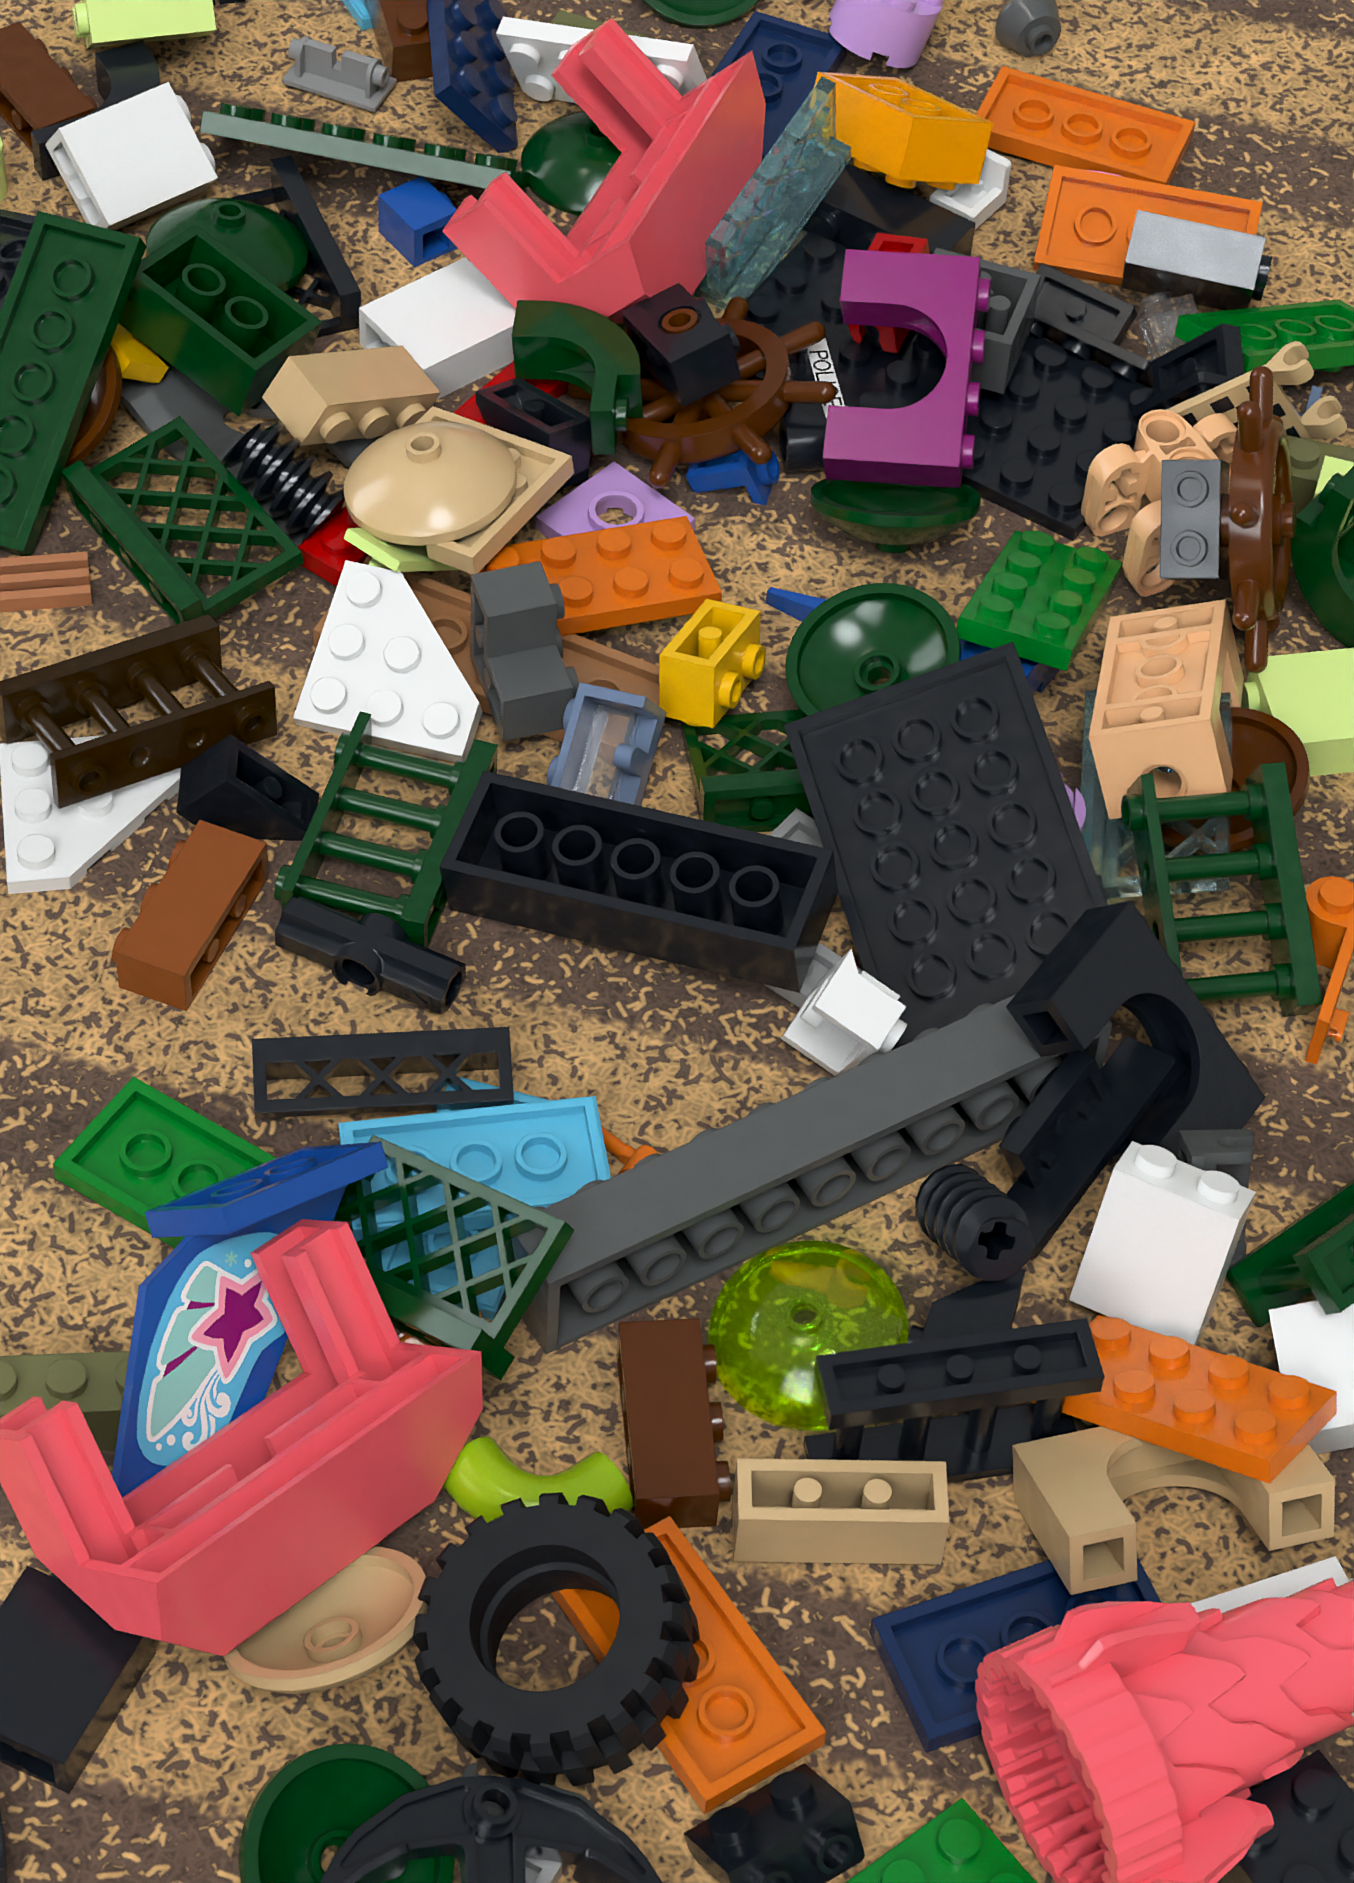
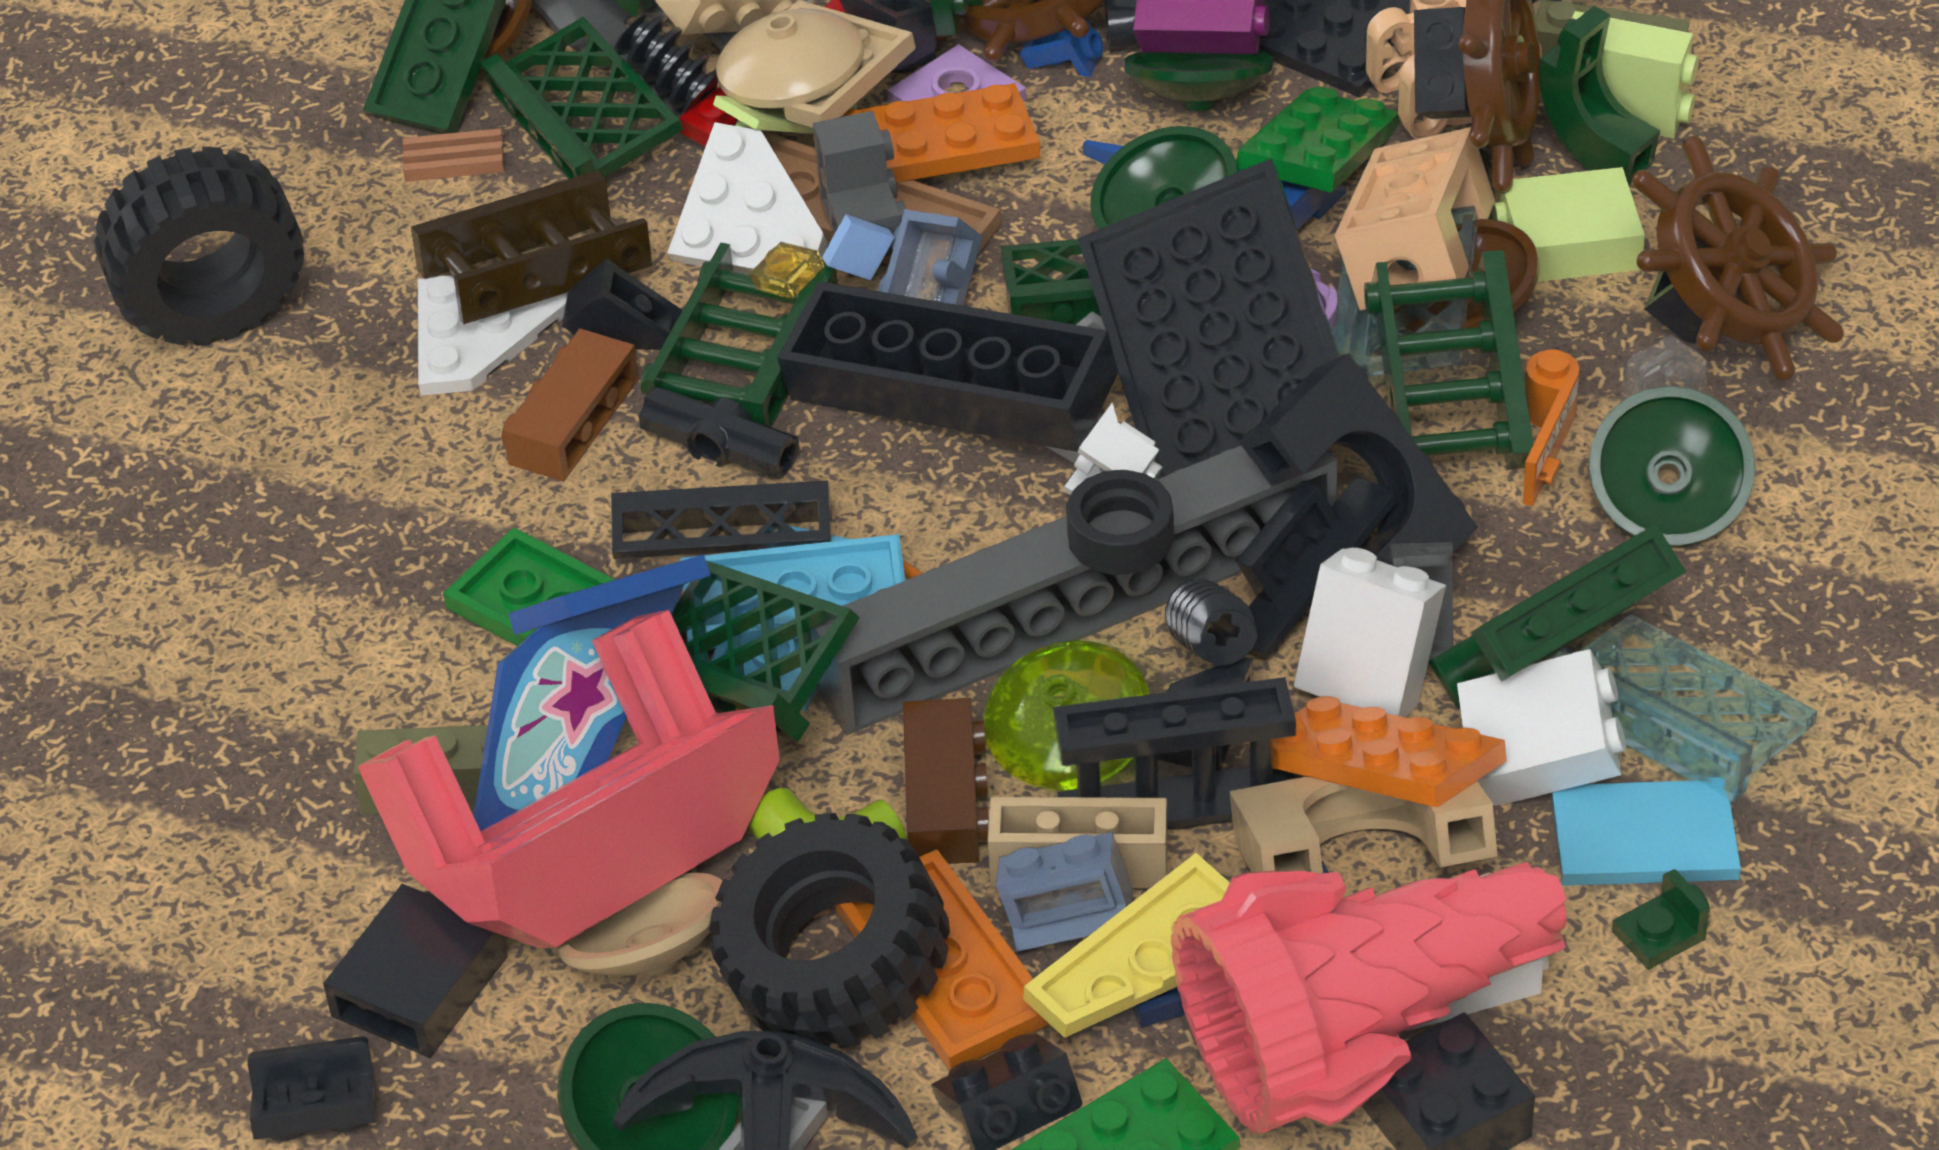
camera: 10 degrees right, 5 degrees down
(440, 750) = (786, 270): none -> clear yellow plate
(524, 725) = (858, 247): none -> light blue tile
(710, 663) = (1024, 197): yellow brick -> none
(830, 1580) = (1062, 889): none -> sand blue window
(881, 1066) = (1121, 552): none -> black tyre
(927, 1659) = (1126, 956): none -> light yellow wing

